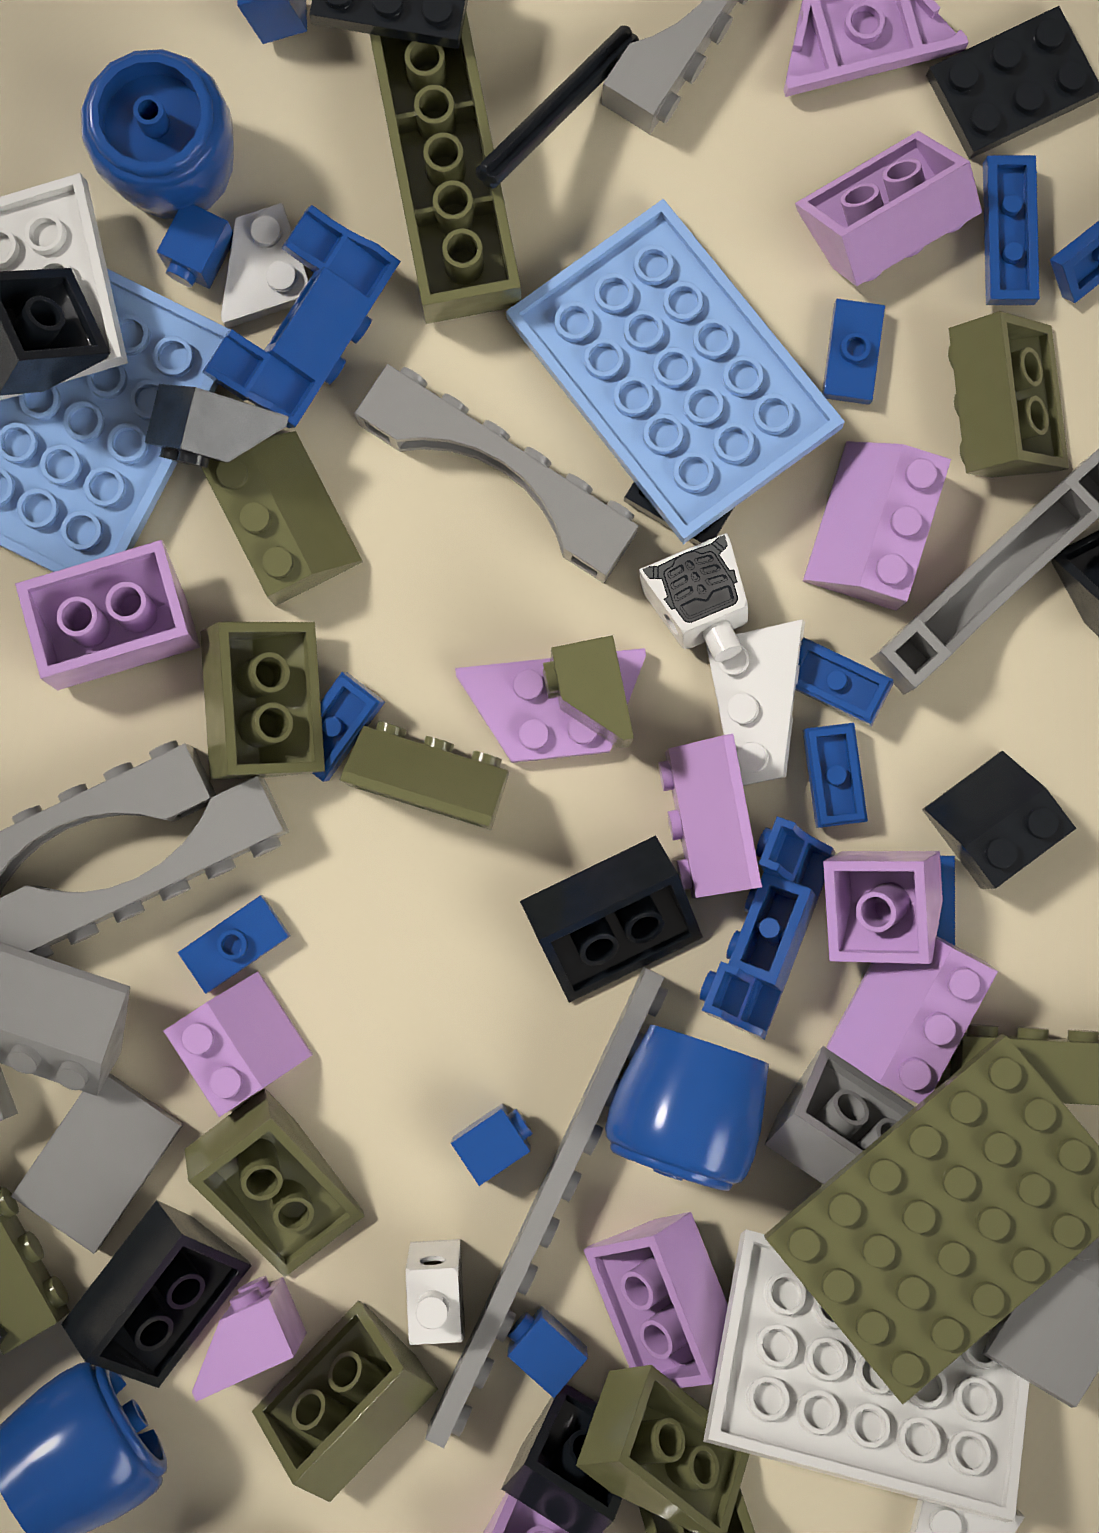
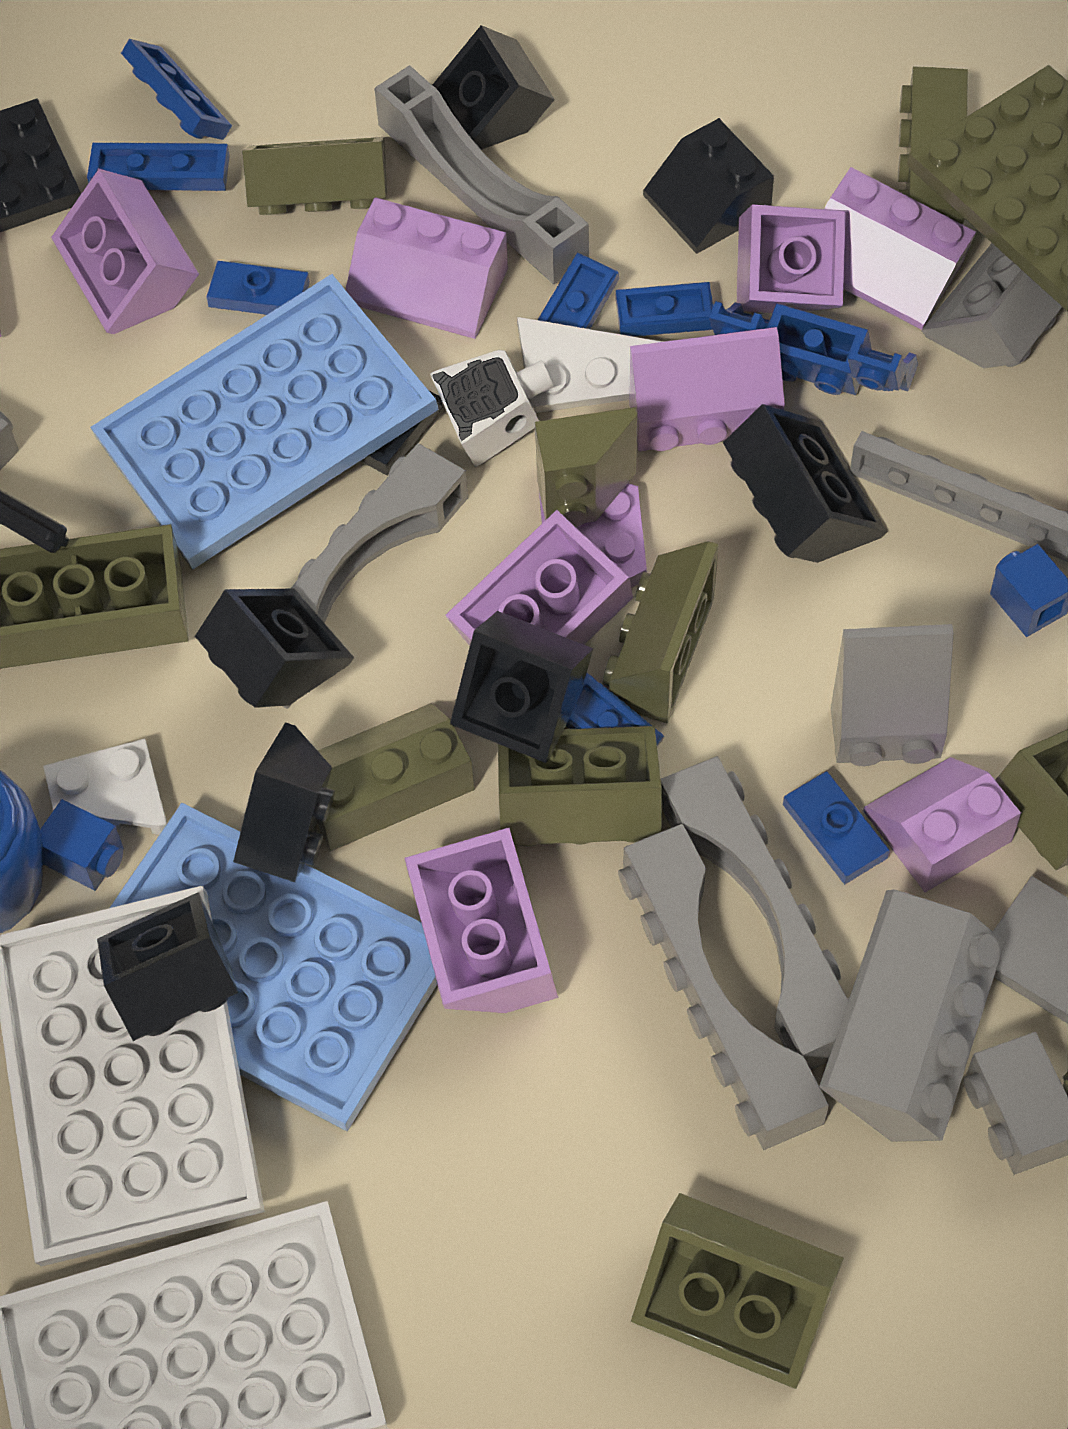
camera: 80 degrees left, 25 degrees down
(318, 326) = (179, 721): blue bracket -> none
(333, 637) = (520, 685): none -> black slope
(338, 998) = (892, 694): none -> light grey slope
(381, 399) = (271, 645): none -> black slope
(440, 655) = (551, 582): none -> lavender slope
(689, 1109) = (987, 405): blue piece -> none

